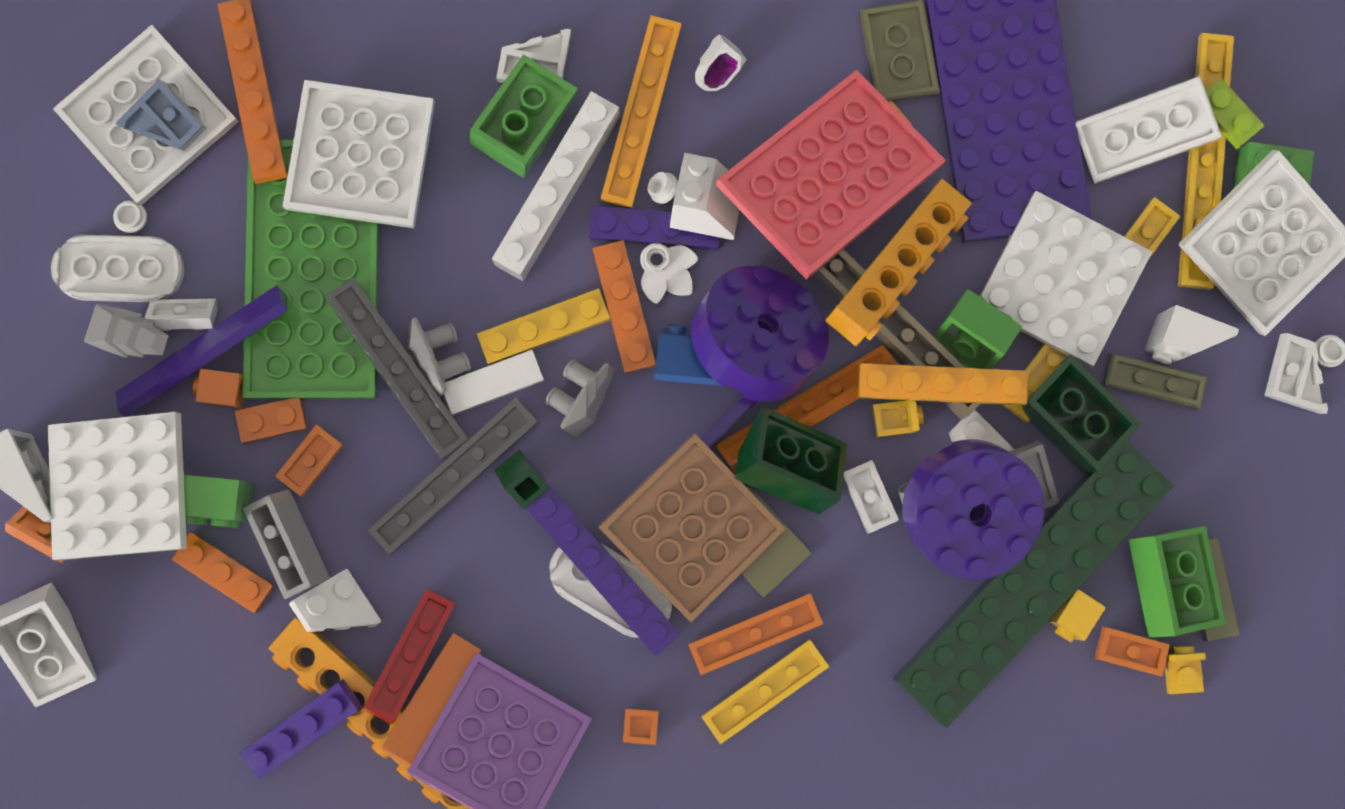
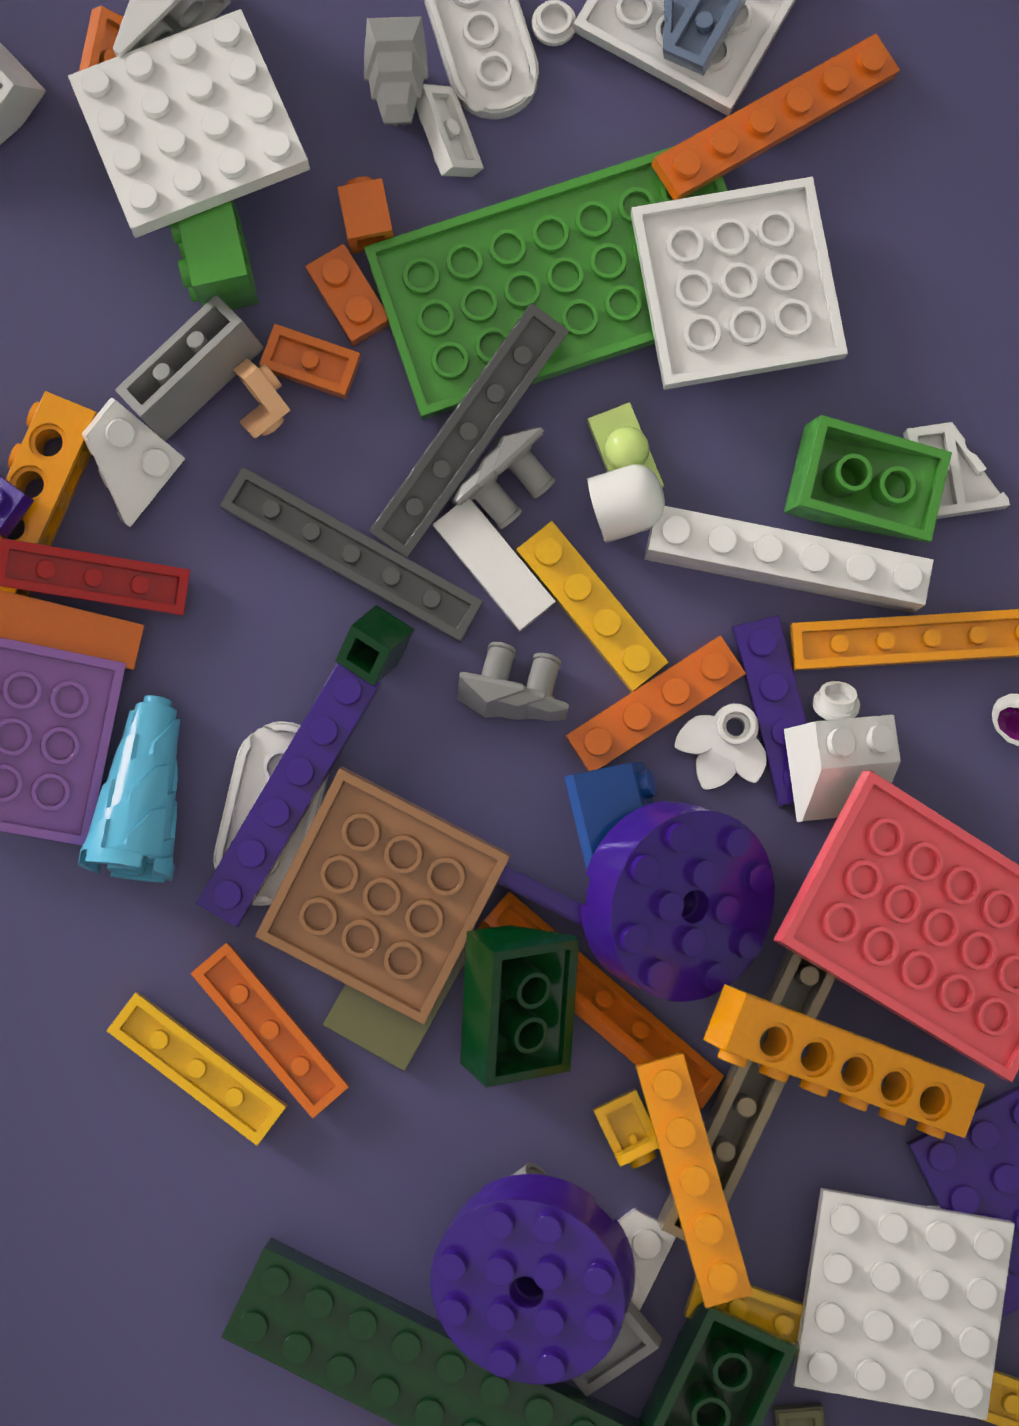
camera: 75 degrees right, 0 degrees up
(201, 351) = (406, 172): dark purple tile -> none
(224, 572) = (130, 303): orange plate -> none
(332, 497) = (263, 387): none -> light nougat bracket
(447, 269) = (621, 439): none -> yellowish green tile
(482, 278) = (626, 501): none -> white helmet
(575, 674) = (137, 804): none -> medium azure cone
(640, 726) = (98, 915): orange plate -> none
(870, 497) = (507, 1126): white plate -> none
(976, 332) = (783, 1203): bright green slope -> none

